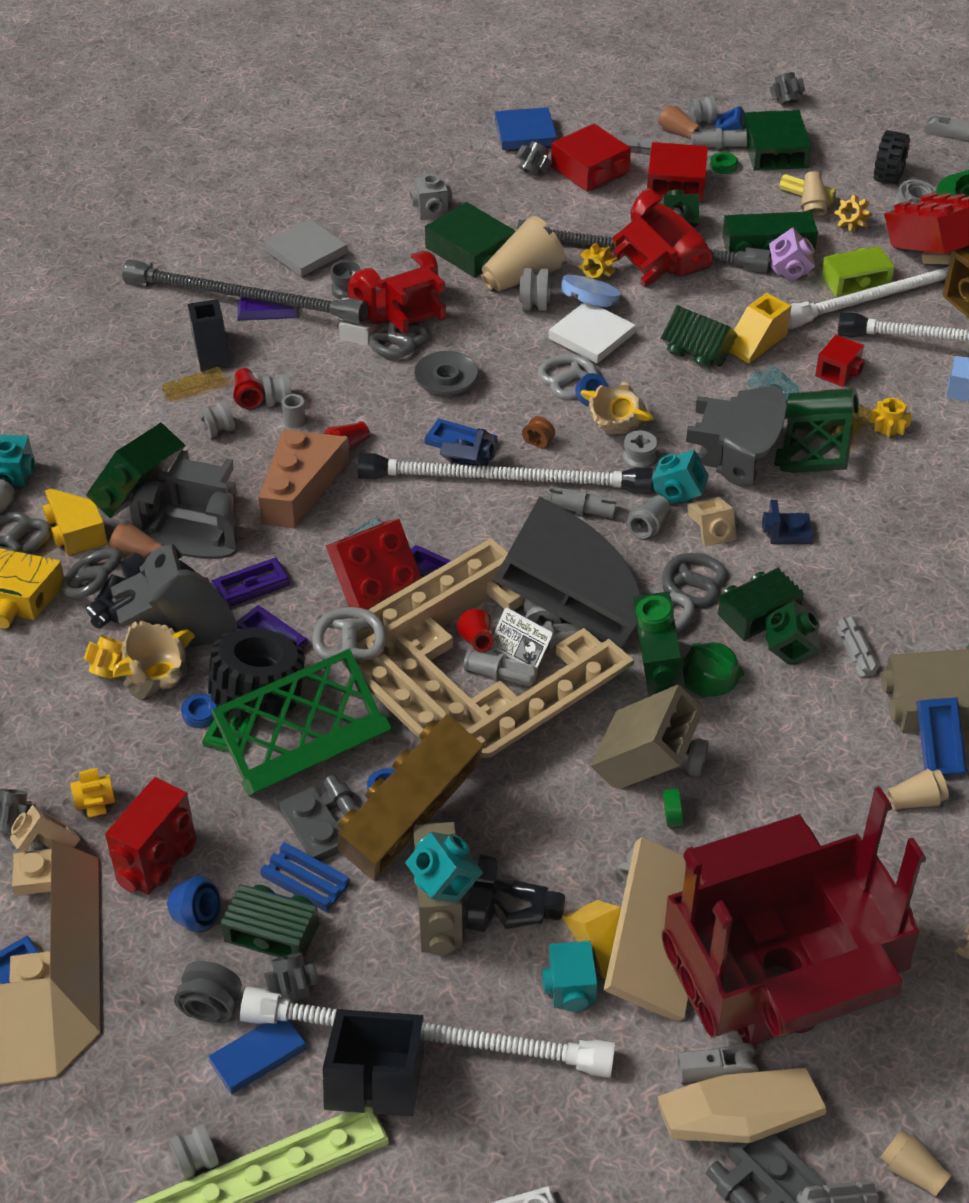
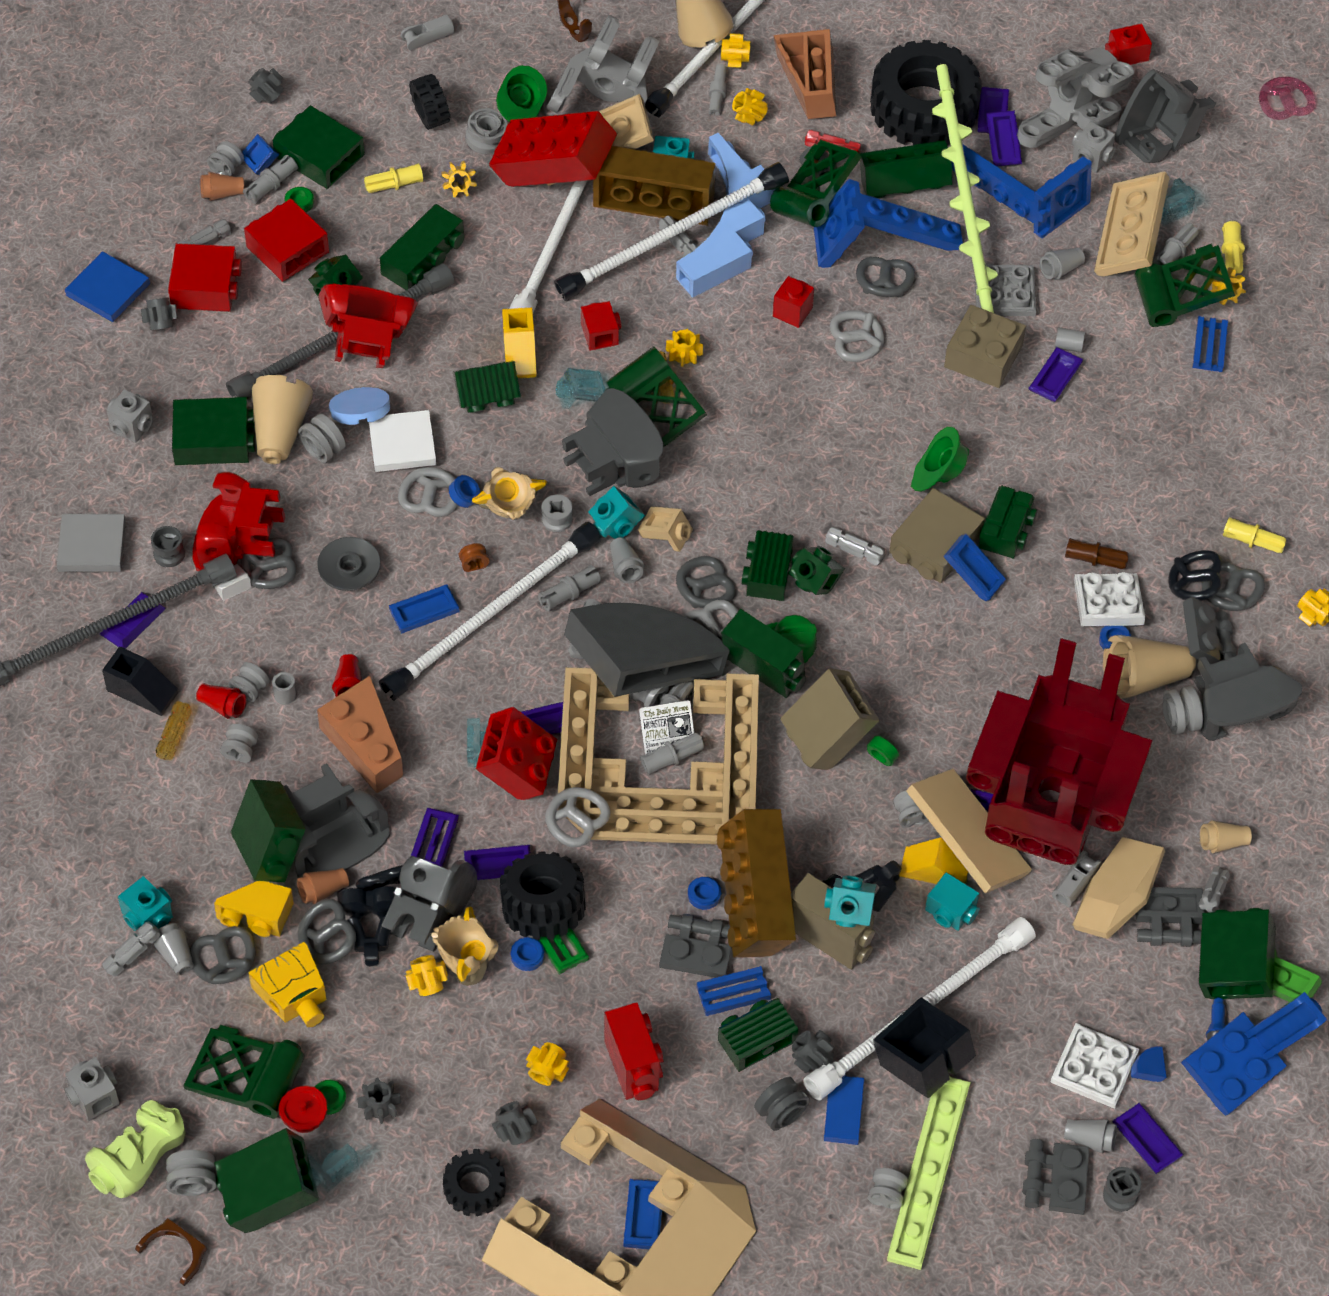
camera: 50 degrees left, 10 degrees up
(43, 827) = (554, 1115): tan bracket -> none
(195, 904) = (701, 1066): blue cone -> none
(306, 754) = (641, 914): green fence -> none
(470, 453) = (449, 617): dark blue bracket -> none
(476, 629) = (627, 740): red cone -> none
(597, 262) = (334, 375): yellow gear -> none
(654, 613) = (753, 632): green tile -> none
(786, 527) = (716, 492): dark blue bracket -> none
(791, 255) = (464, 256): lavender brick -> none
(814, 194) = (412, 183): tan cone -> none
(857, 270) = (520, 232): lime brick -> none
(921, 790) = (997, 613): tan cone -> none

